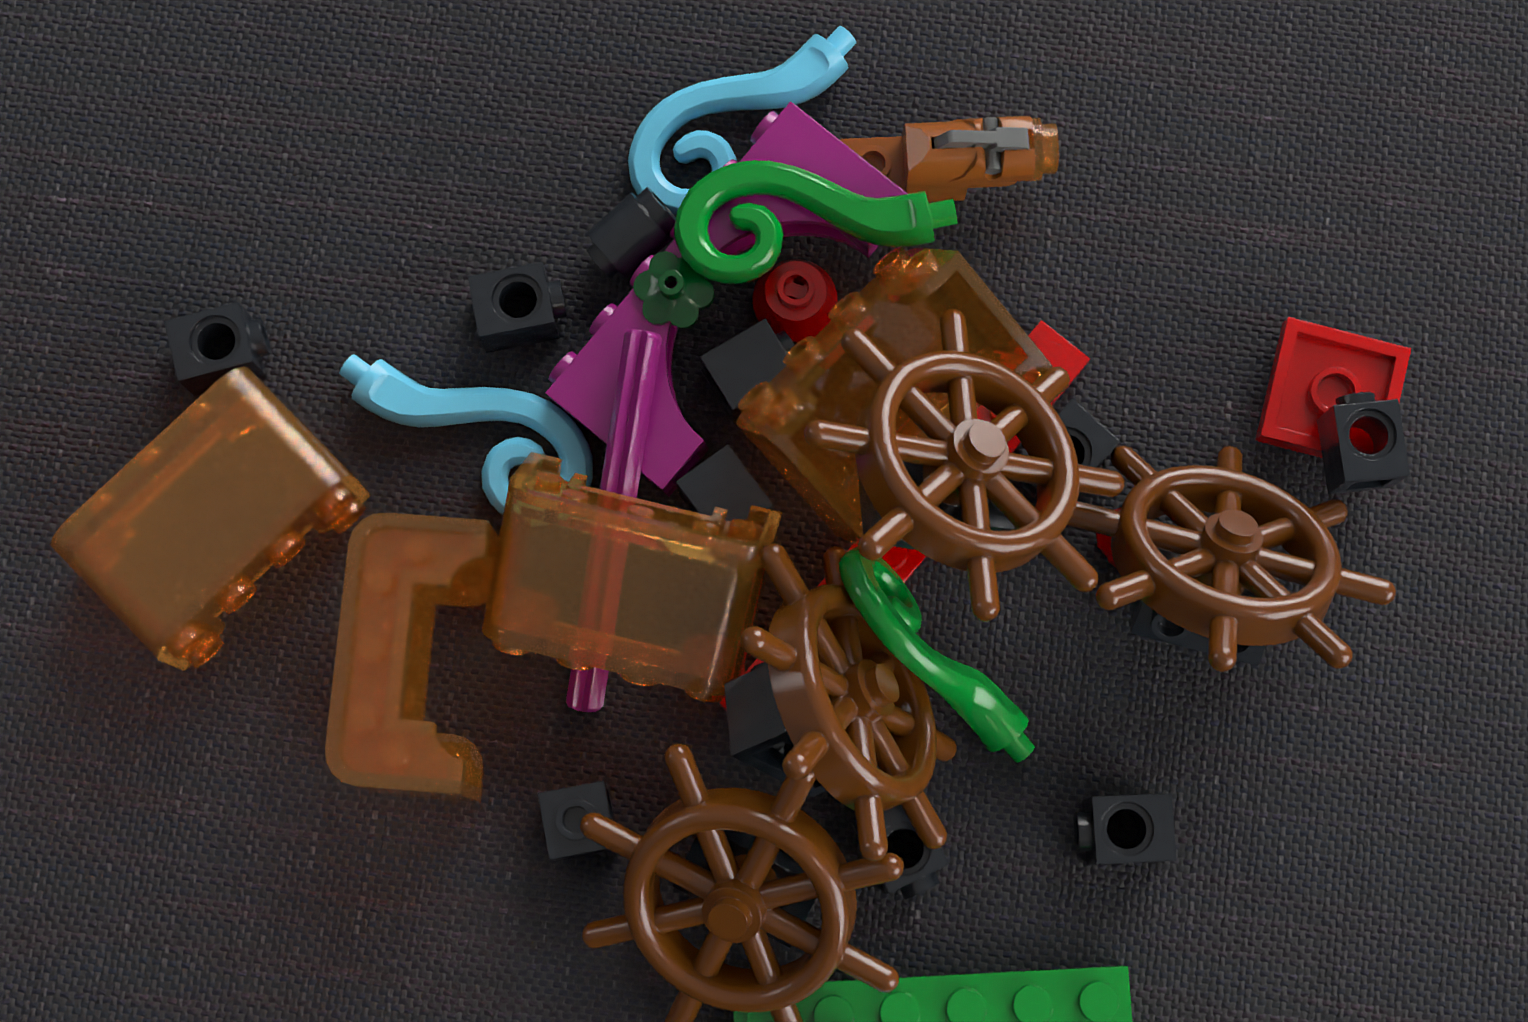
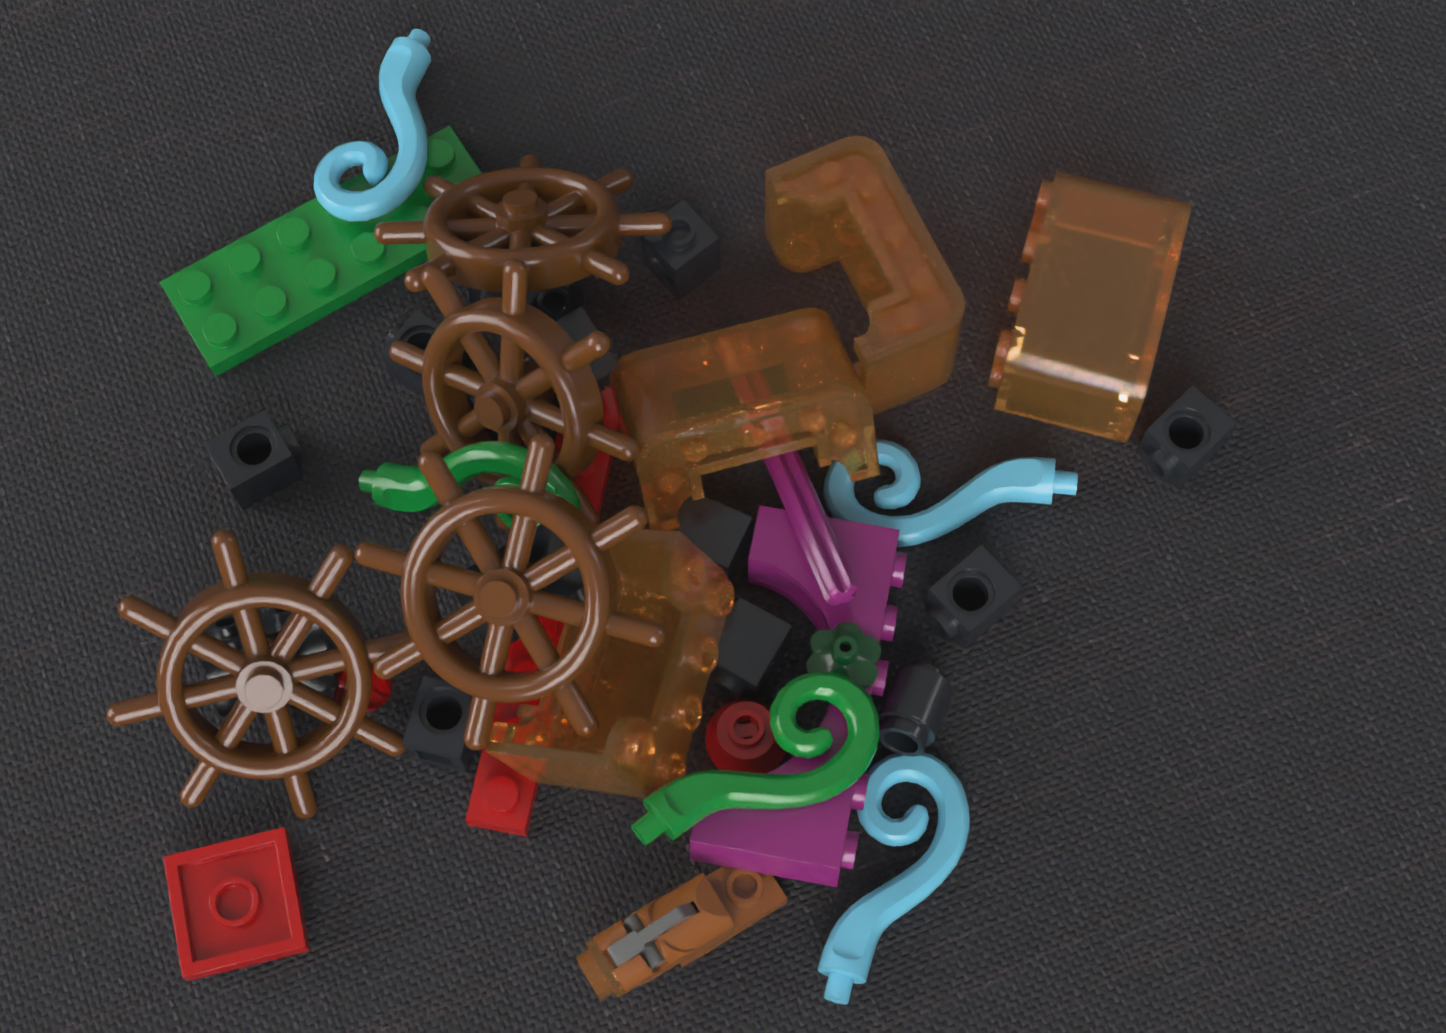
camera: 155 degrees right, 10 degrees down
(1347, 467) = (170, 830): black brick -> none

